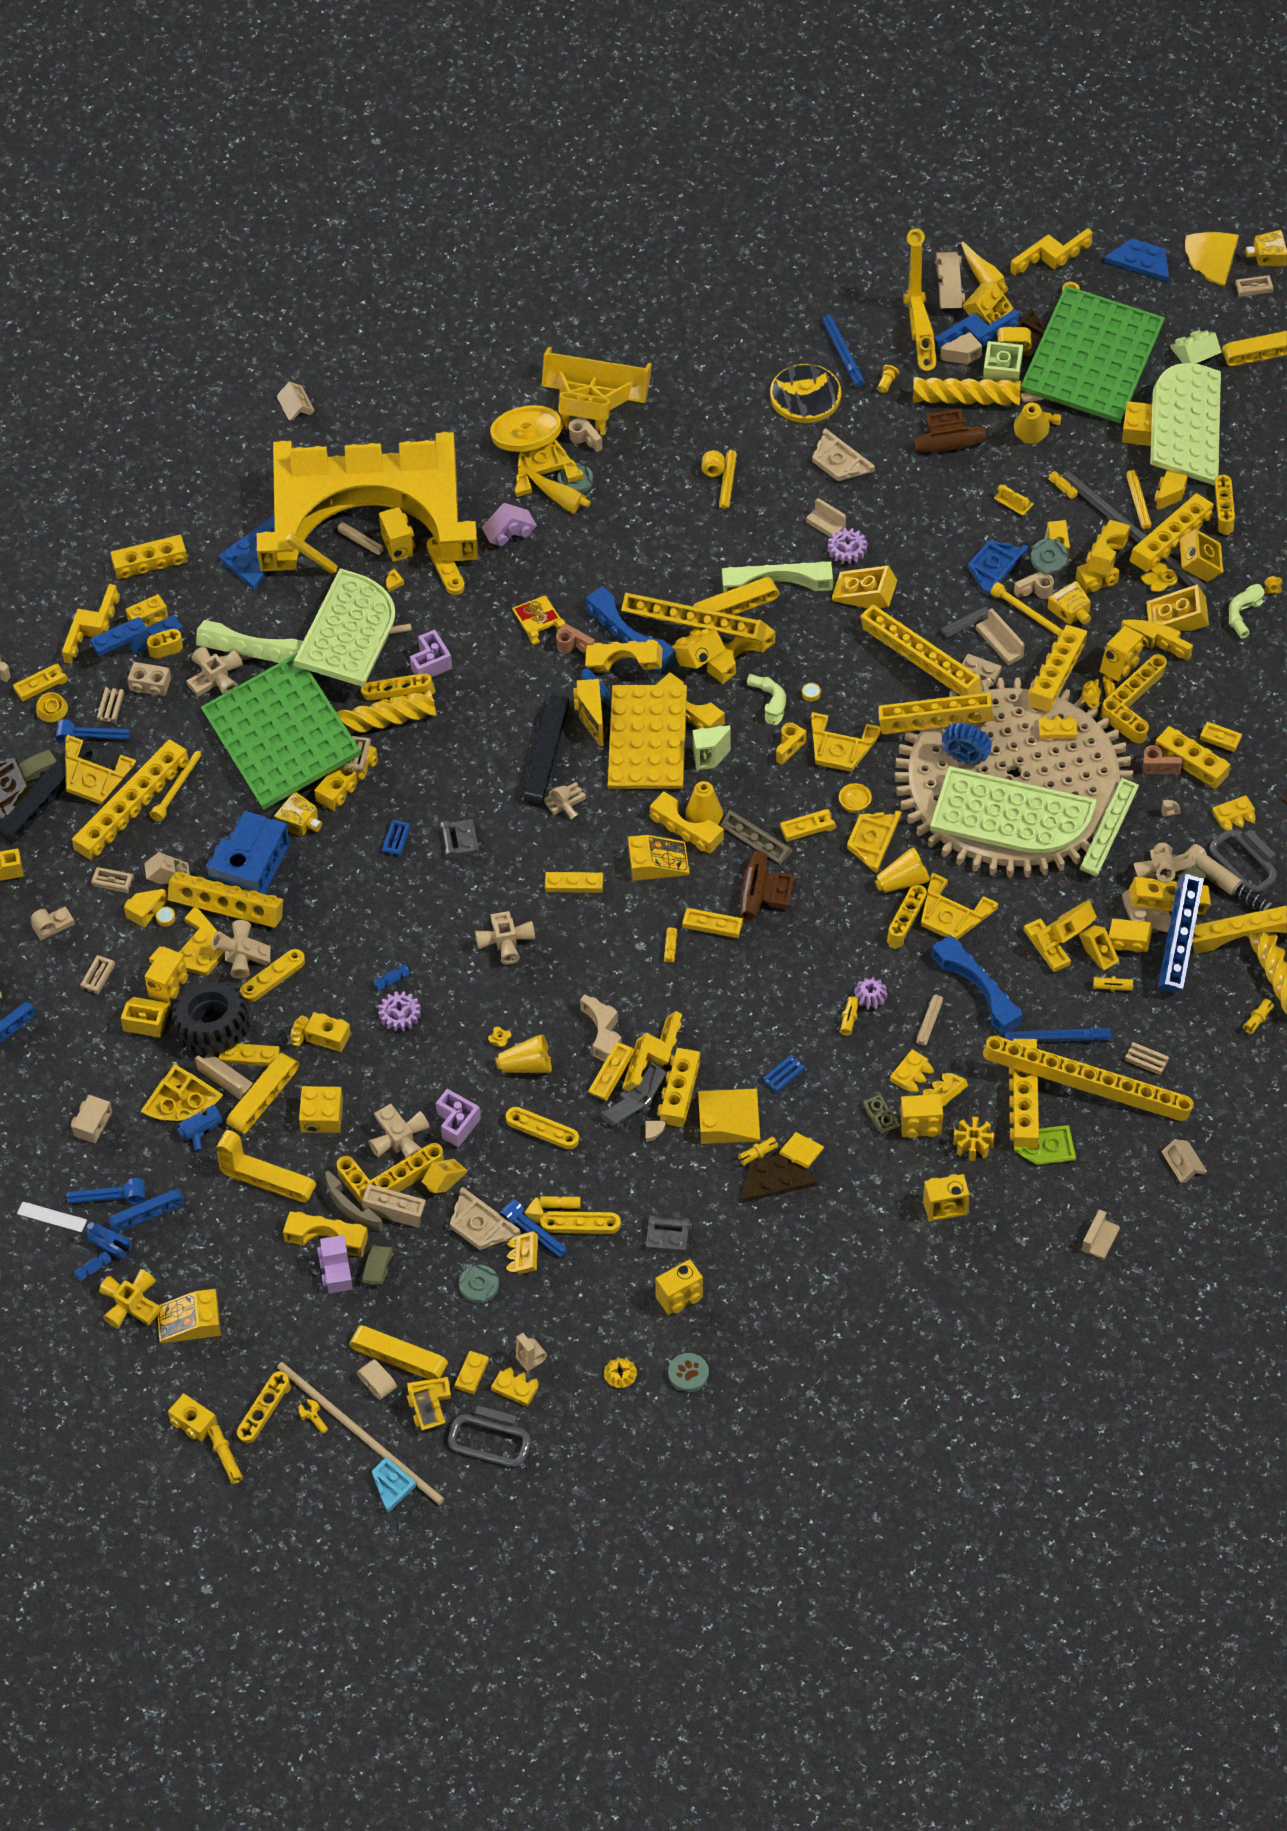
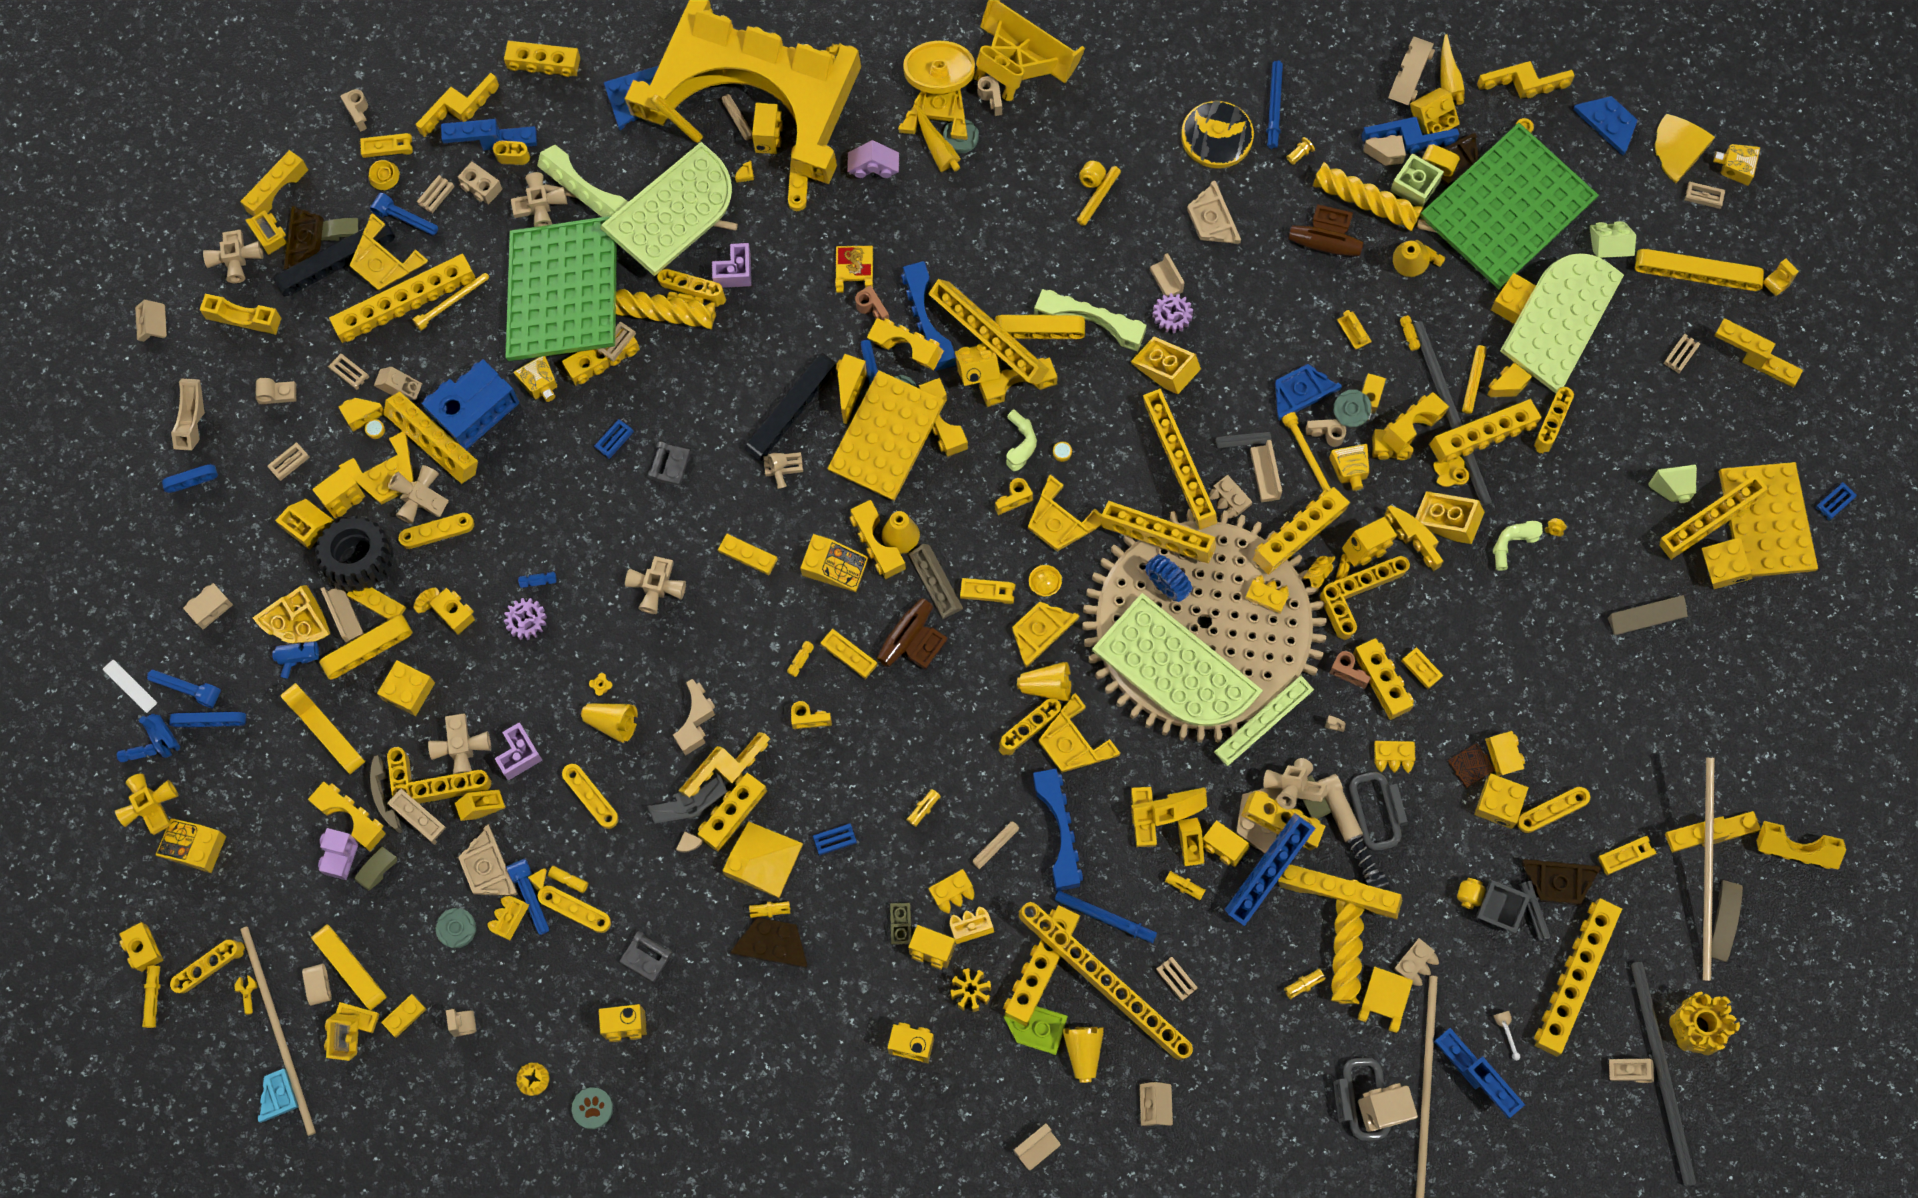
camera: 25 degrees right, 15 degrees up
(150, 611) = (511, 115): yellow brick -> none
(494, 1420) = (397, 1077): dark grey bar -> none
(515, 1387) = (434, 1049): yellow plate -> none
(611, 1071) = (678, 767): yellow plate -> none
(706, 987) = (818, 719): none -> yellow plate
(710, 746) = (936, 471): yellowish green slope -> none
(801, 1150) = (809, 927): yellow piece -> none
(870, 993) = (962, 790): lavender gear -> none
(915, 300) = (1369, 77): yellow piece -> none
(1099, 1141) = (1084, 1050): none -> yellow cone
(1201, 555) = (1500, 468): yellow brick -> none

